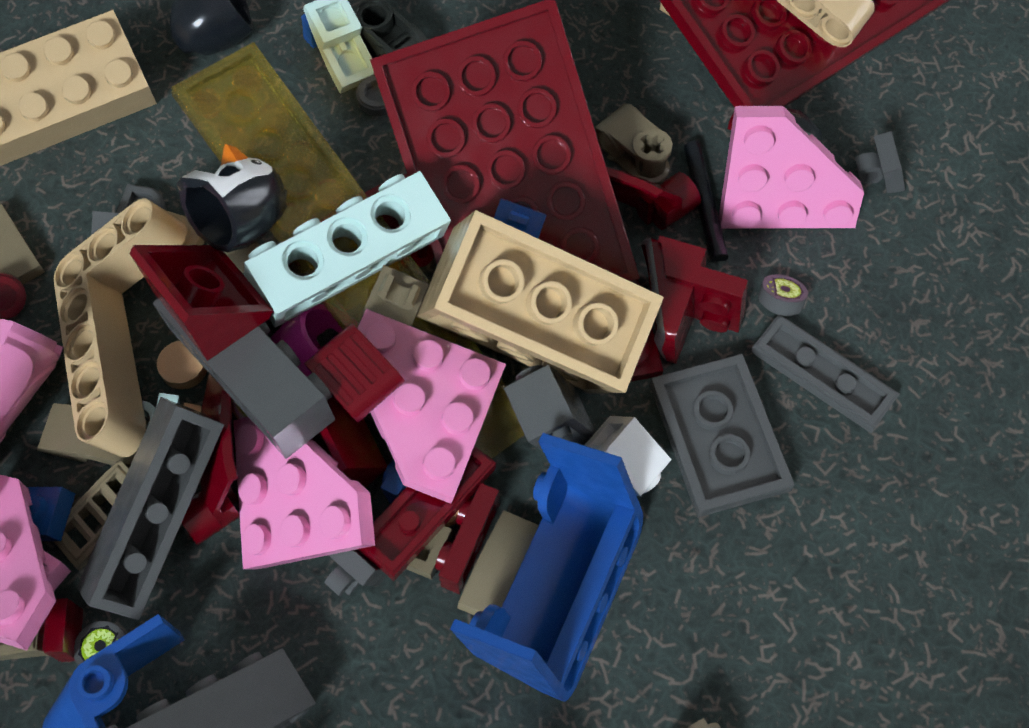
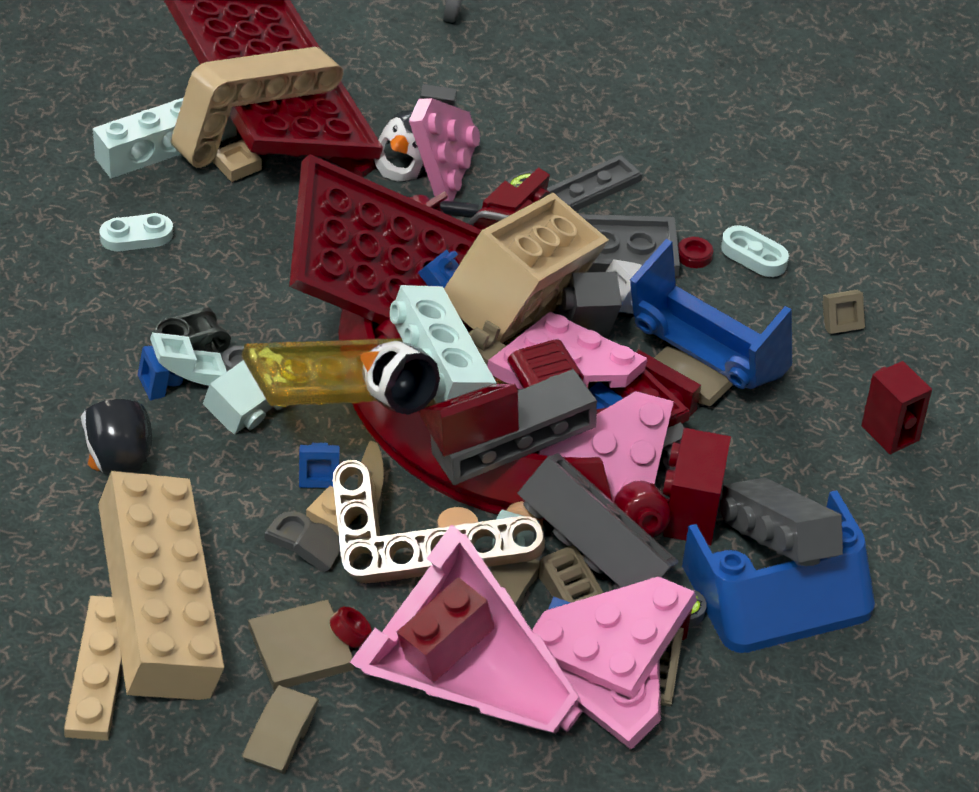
camera: 80 degrees left, 20 degrees down
(210, 555) = (645, 506): none -> dark red head
(263, 611) = (695, 482): none -> dark red brick
(334, 109) = (237, 399): none -> light aqua brick
(752, 529) = (695, 252): none -> dark red tile
(780, 609) = (754, 251): none -> light aqua plate

